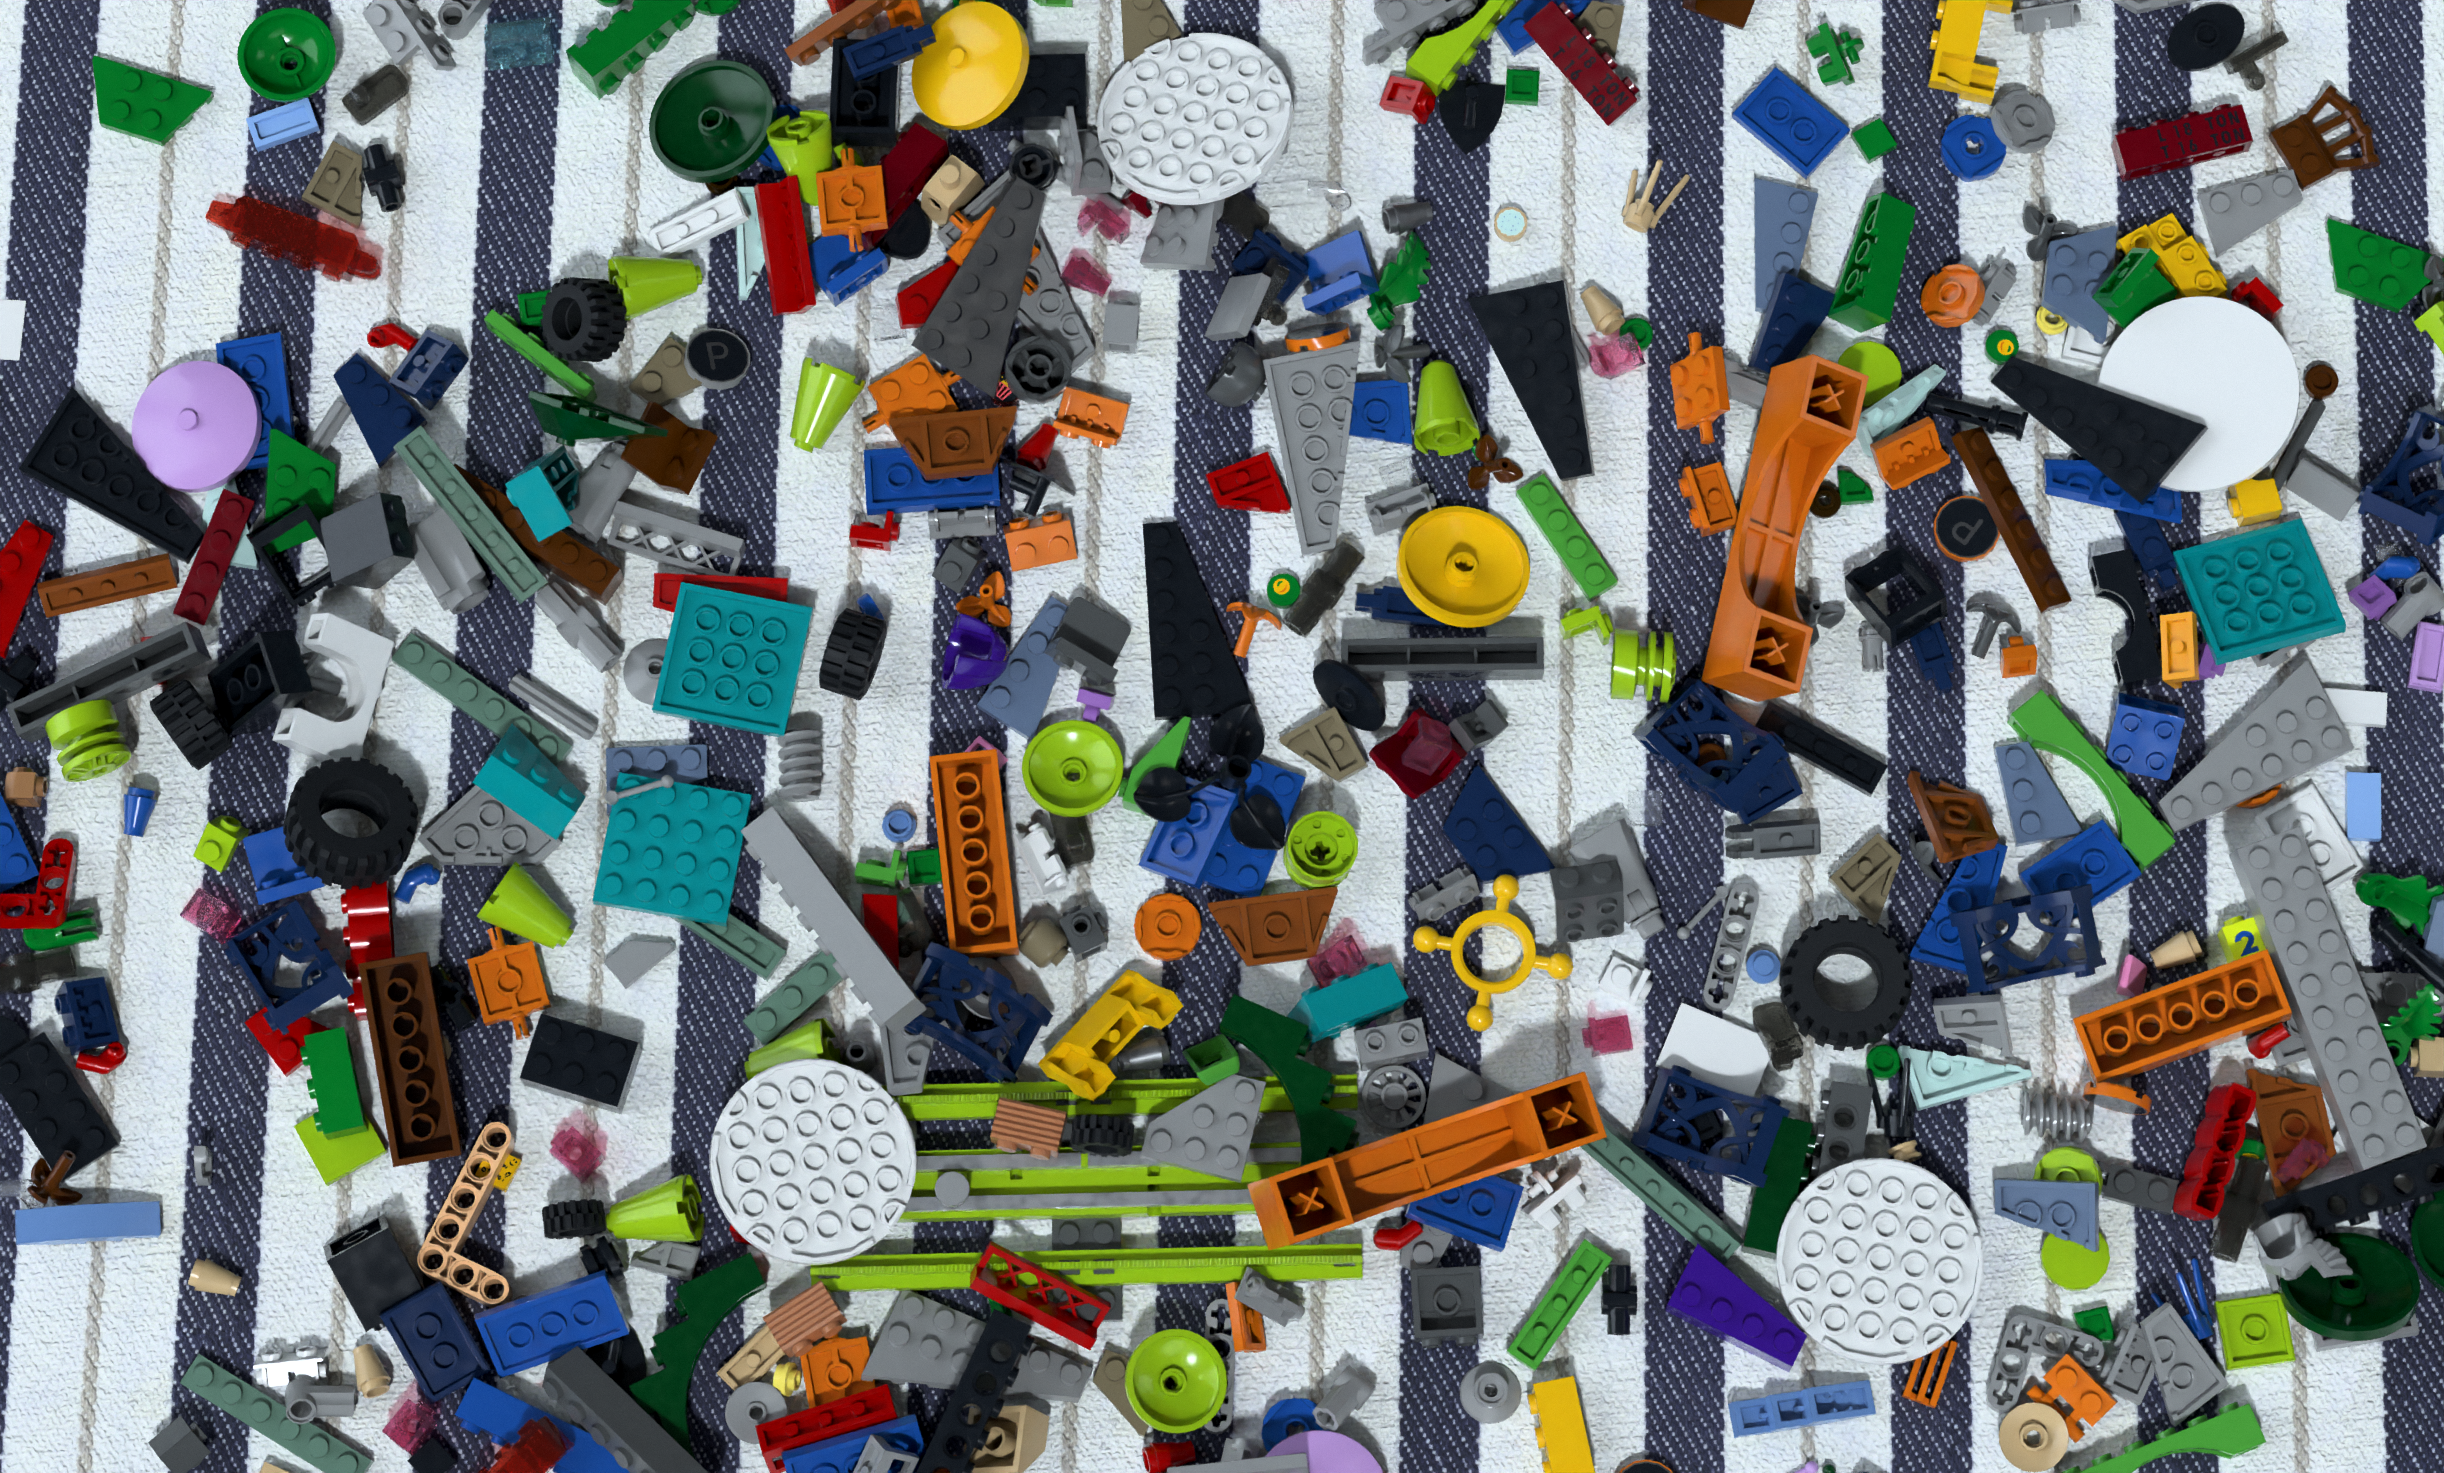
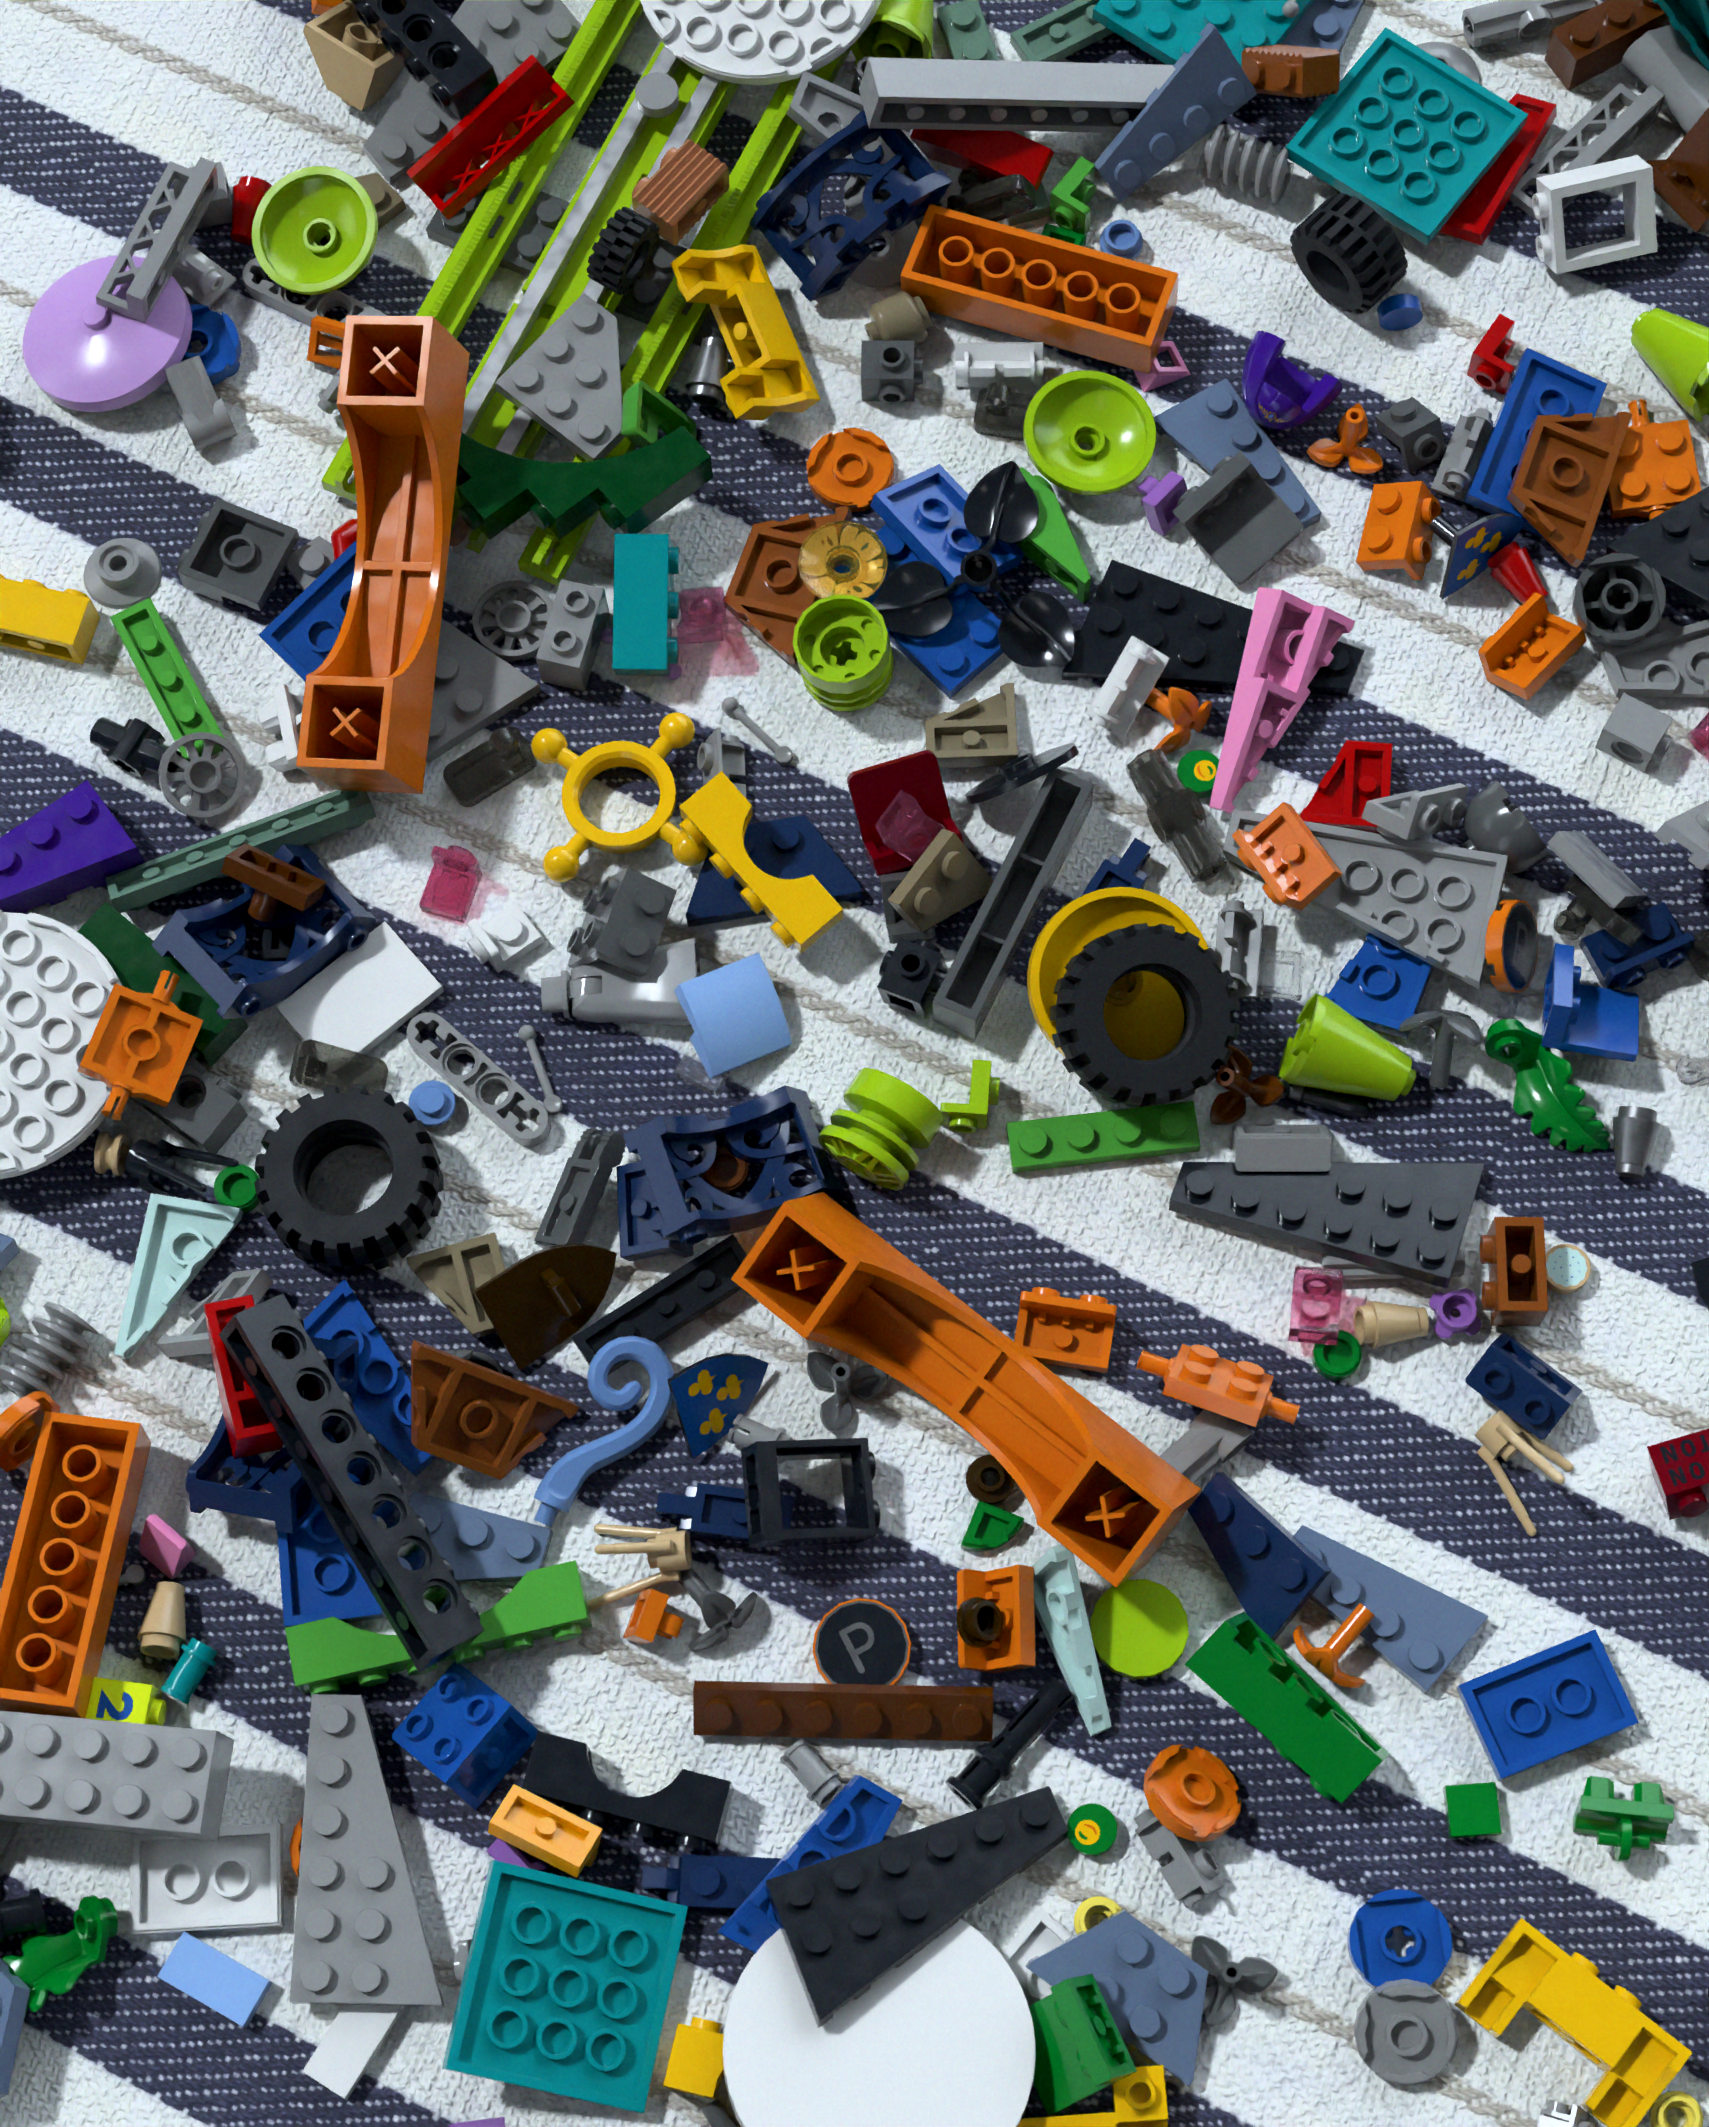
camera: 120 degrees right, 5 degrees down
(721, 757) = (1292, 70): none -> dark orange brick
(726, 513) = (1639, 213): none -> white window
(801, 822) = (1191, 103): none -> sand blue wing
(1182, 568) = (1280, 658): none -> bright pink wedge
(1248, 660) = (1128, 686): none -> white hinge
(1253, 866) = (846, 545): none -> clear yellow dish
(1255, 433) = (1417, 812): none -> light grey bracket
(1331, 496) = (1287, 858): none -> orange bracket
(1402, 868) = (783, 754): none -> light grey hinge
(1456, 708) = (940, 883): none -> dark tan wing
(1486, 862) = (798, 907): none -> yellow arch
(1497, 497) = (1205, 1005): none -> black tyre
(1510, 1056) = (489, 767): none -> clear smoke piece
(1519, 424) = (1282, 1148): none -> light grey slope
(1532, 690) = (912, 976): none -> black brick
(1534, 246) = (1516, 1271): none -> dark orange brick
(1576, 267) = (1462, 1301): none -> medium lavender plate
(1601, 214) = (1523, 1385): none -> dark blue bracket
(1609, 798) = (734, 1015): none -> light blue slope
(1618, 1239) = (202, 774): none -> light grey wheel
(1677, 1133) = (272, 881): none -> reddish brown tile
(1832, 256) = (1326, 1658): none -> orange plant
(1836, 1152) = (140, 1045): none -> orange plate
(1854, 821) = (546, 1297): none -> dark brown shield
(1862, 690) = (712, 1395): none -> blue shield
(1920, 459) = (979, 1622): none -> dark brown plate
(1955, 753) = (569, 1473): none -> medium blue plant
(1976, 666) = (665, 1550): none -> tan plant
(2014, 963) = (245, 1420): none -> red slope
(2044, 857) = (350, 1506): none -> black brick
(2056, 521) = (811, 1772): none -> light grey pin
(2197, 920) = (189, 1670): none -> teal pin

